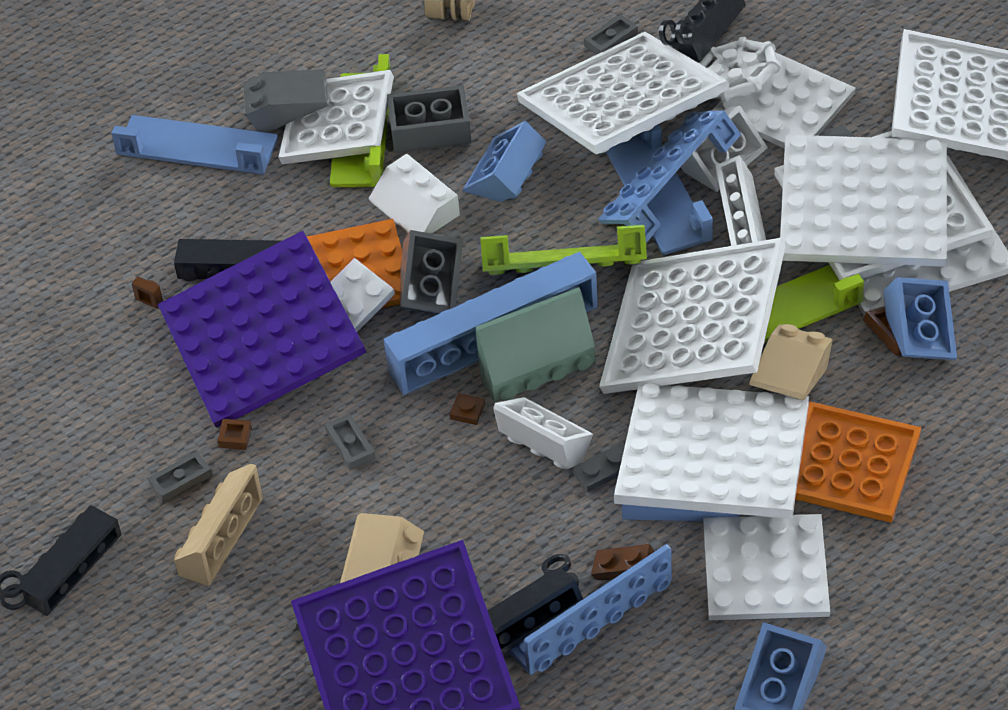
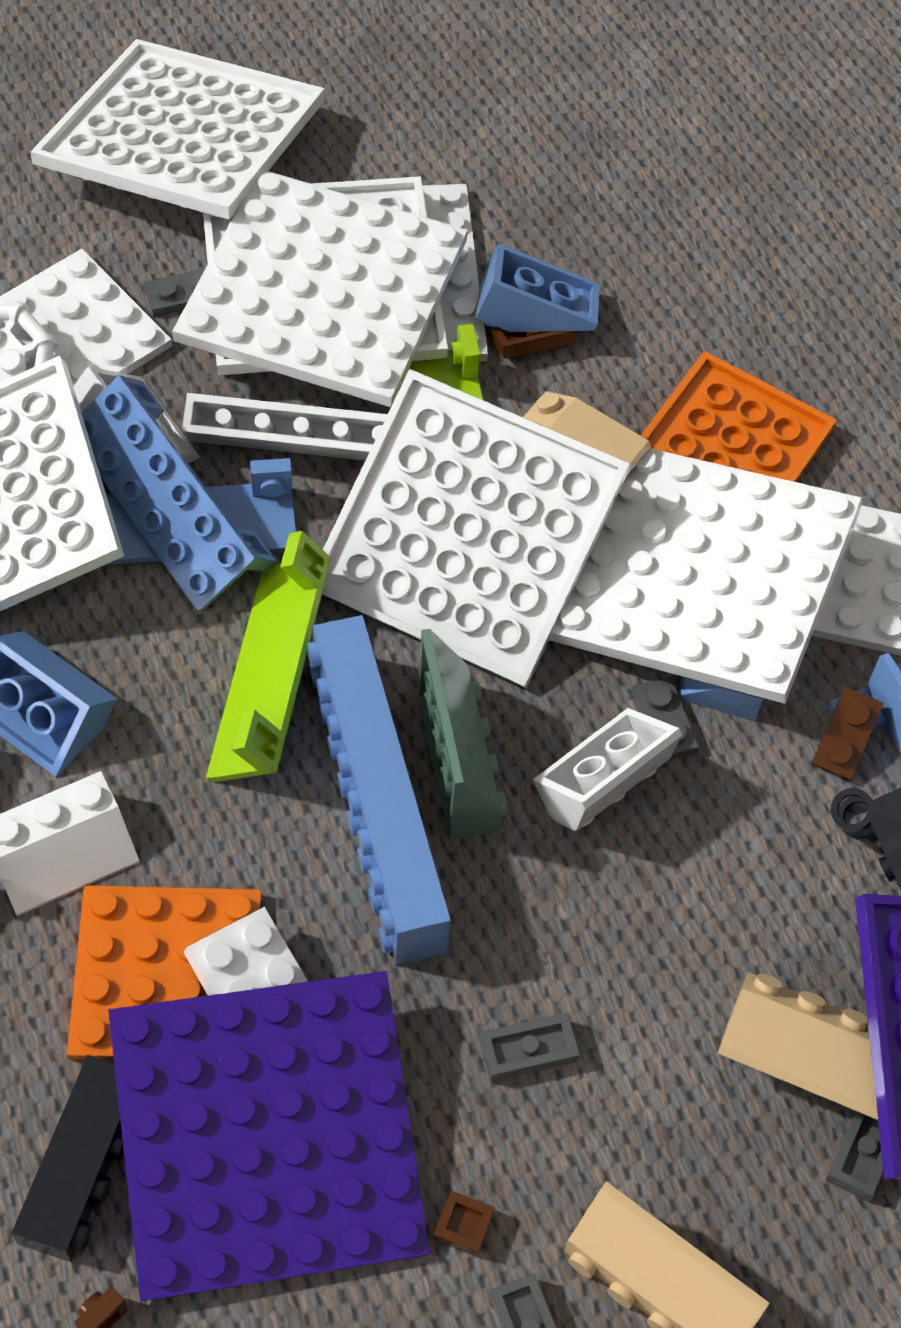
camera: 85 degrees left, 10 degrees up
(430, 272) = (239, 852): dark grey slope -> none
(467, 409) = (507, 868): reddish brown plate -> none

